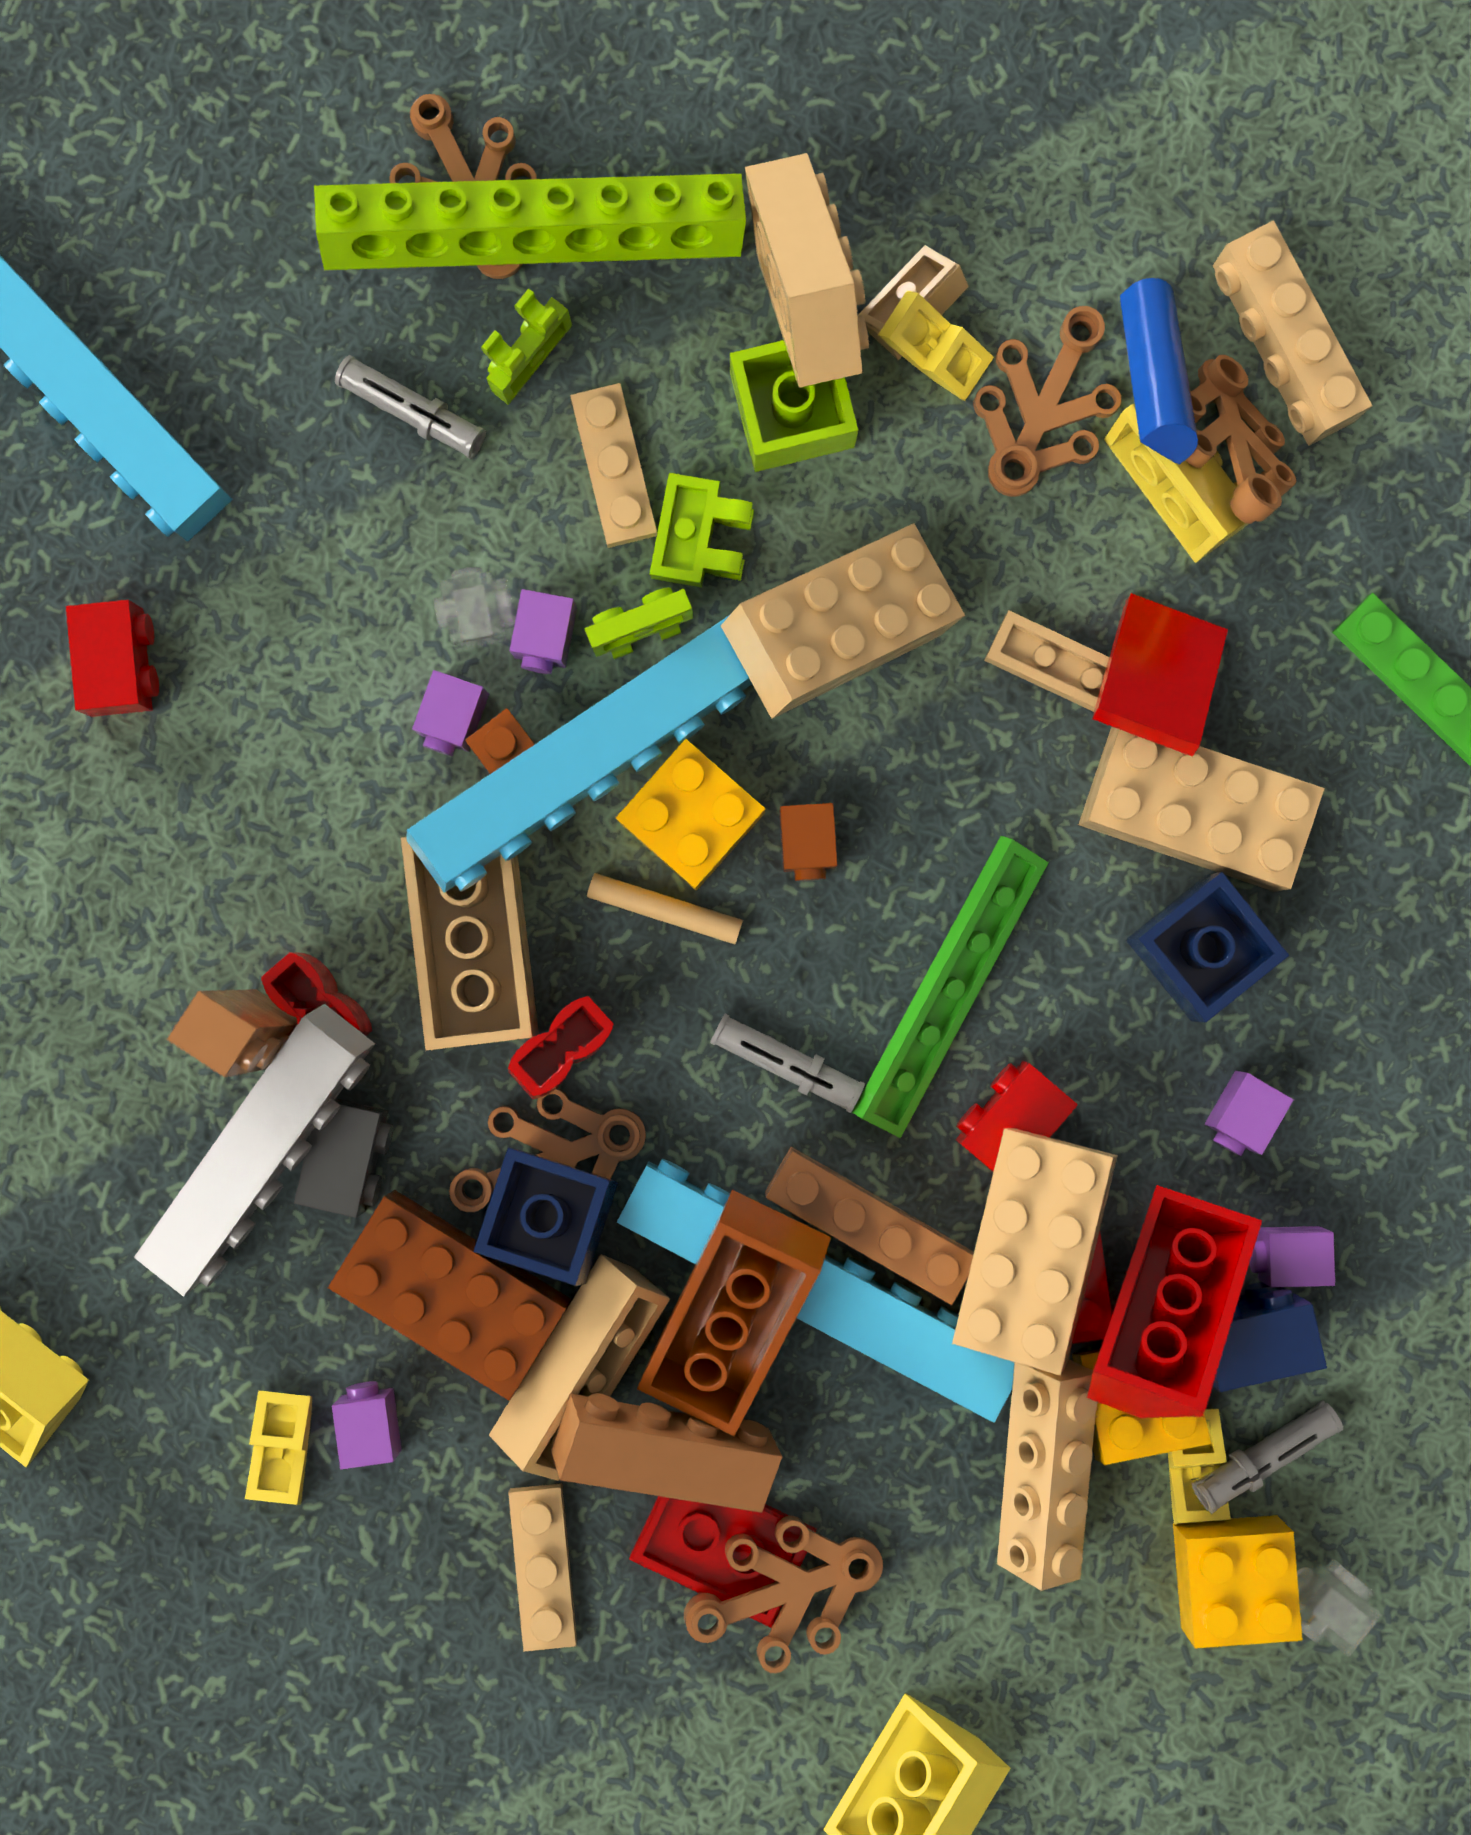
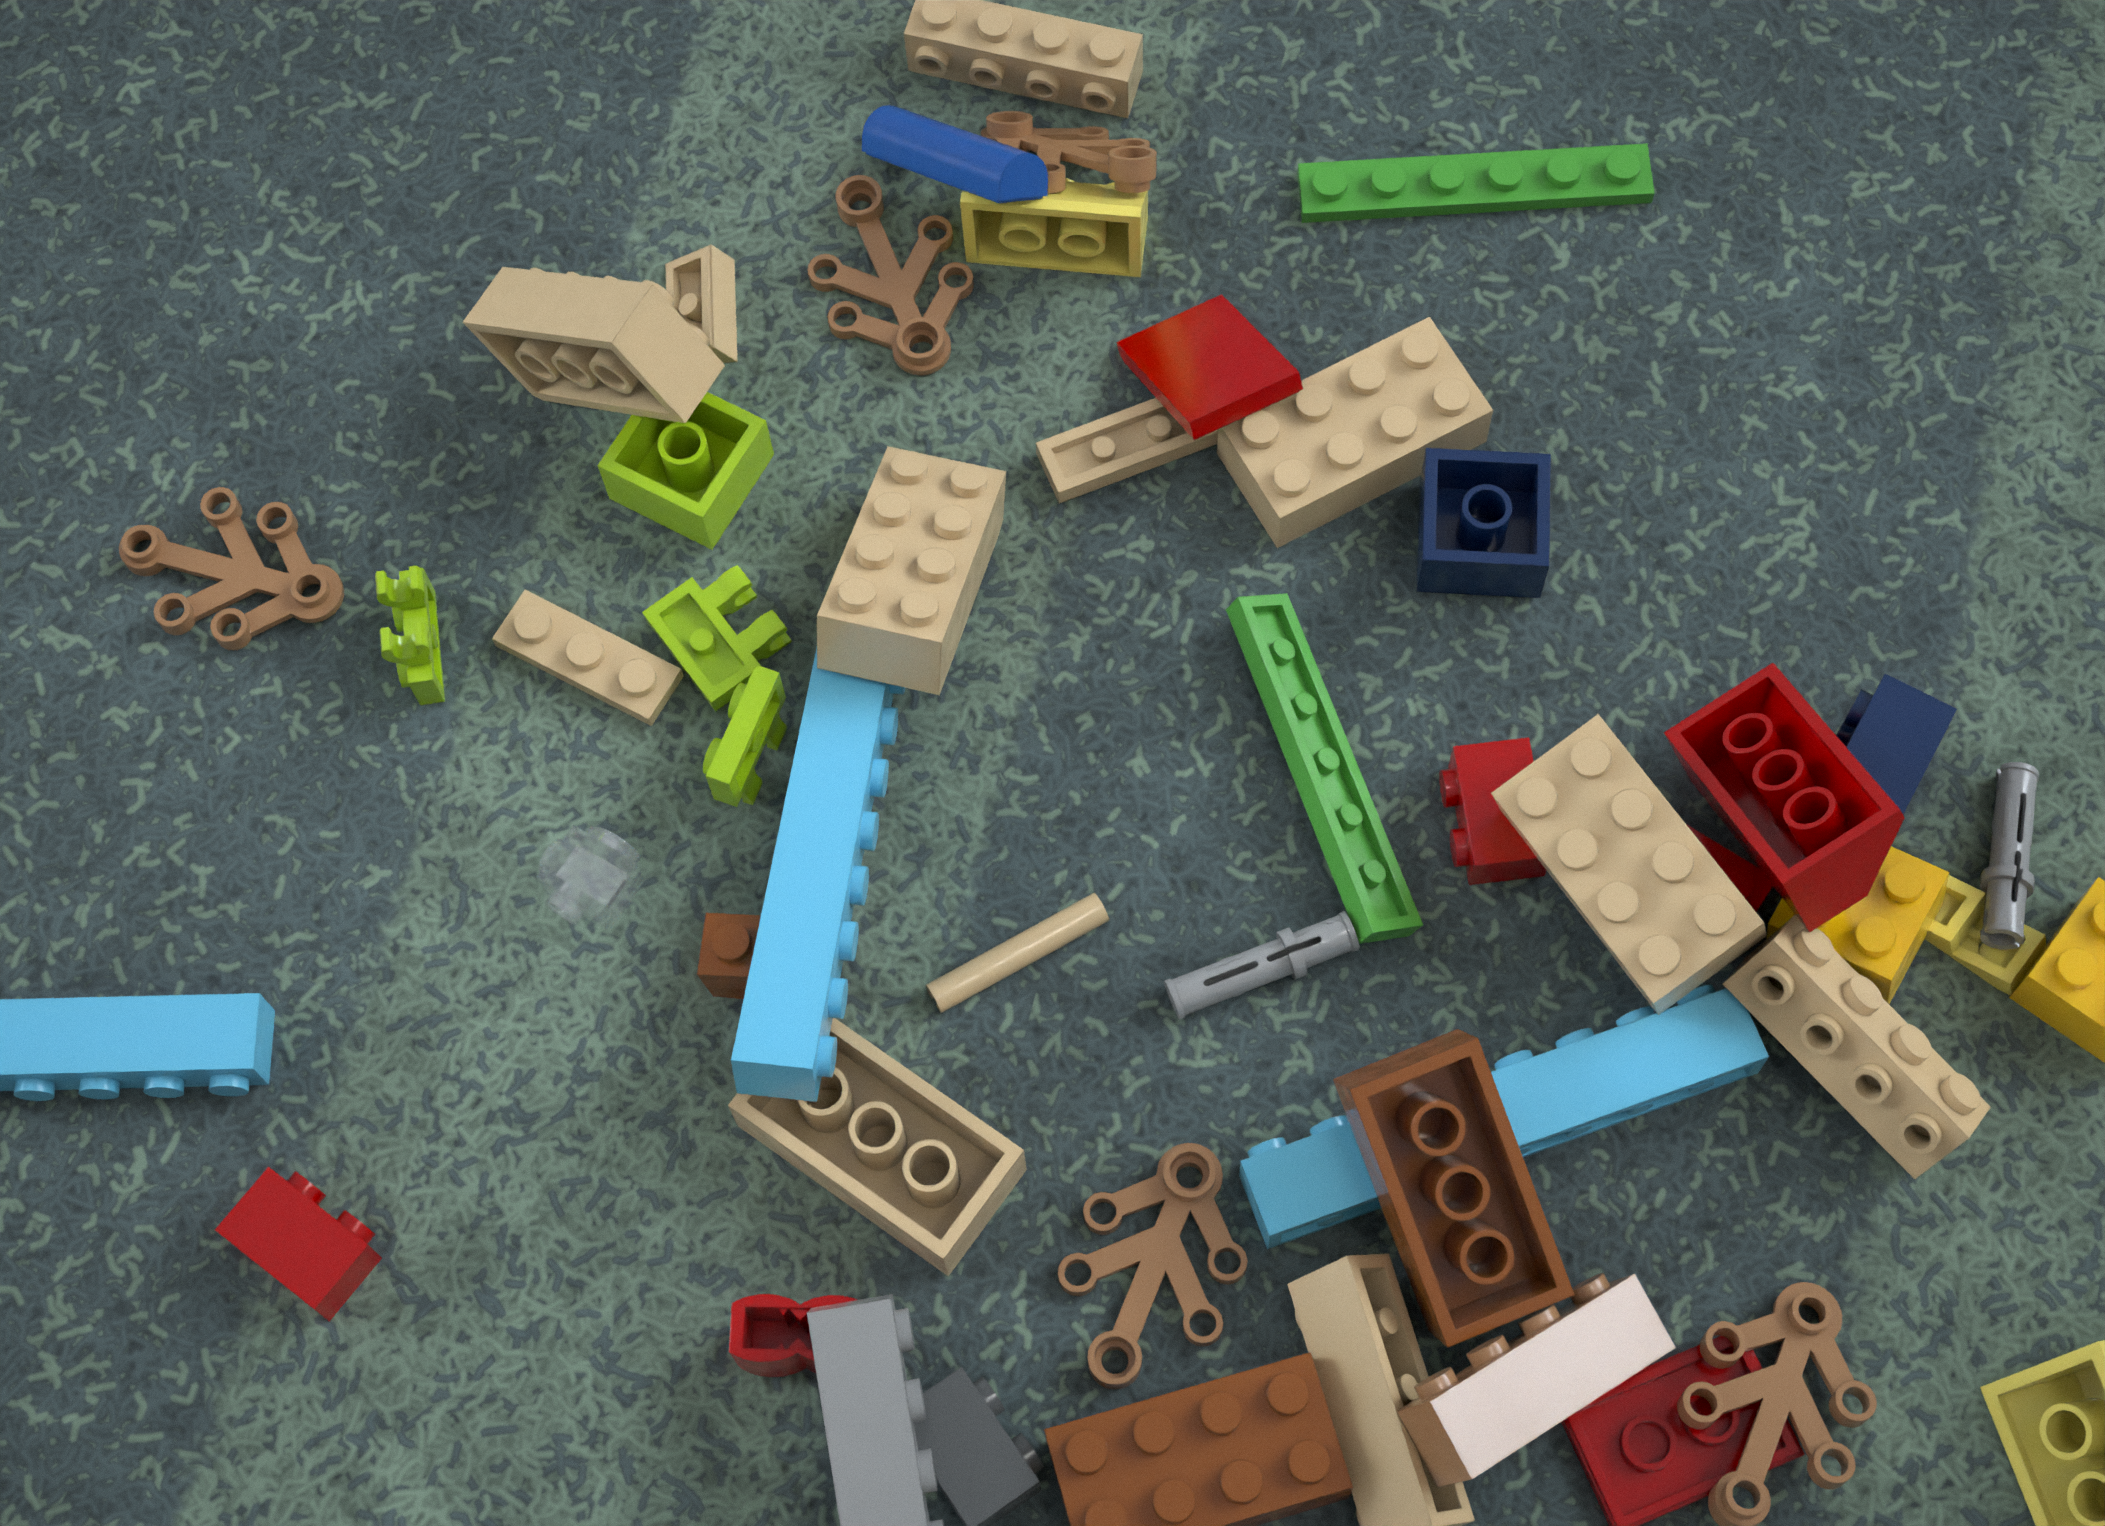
camera: 50 degrees left, 20 degrees down
(233, 1030) = (762, 1396): medium nougat brick -> none
(449, 713) = (658, 979): medium lavender brick -> none
(461, 434) = (361, 779): light grey pin -> none
(529, 221) = (316, 536): lime brick -> none
(543, 631) = (668, 834): medium lavender brick -> none
(546, 1217) = (1205, 1290): dark blue brick -> none
(572, 1038) = (1057, 1144): red brick -> none
(691, 814) = (955, 849): yellow brick -> none
(808, 840) = (1074, 771): dark orange brick -> none
(870, 1225) = (1496, 1005): medium nougat brick -> none
(935, 346) = (757, 320): light yellow slope -> none
(1247, 1114) = (1667, 613): medium lavender brick -> none
(1294, 1256) = (1837, 674): medium lavender brick -> none

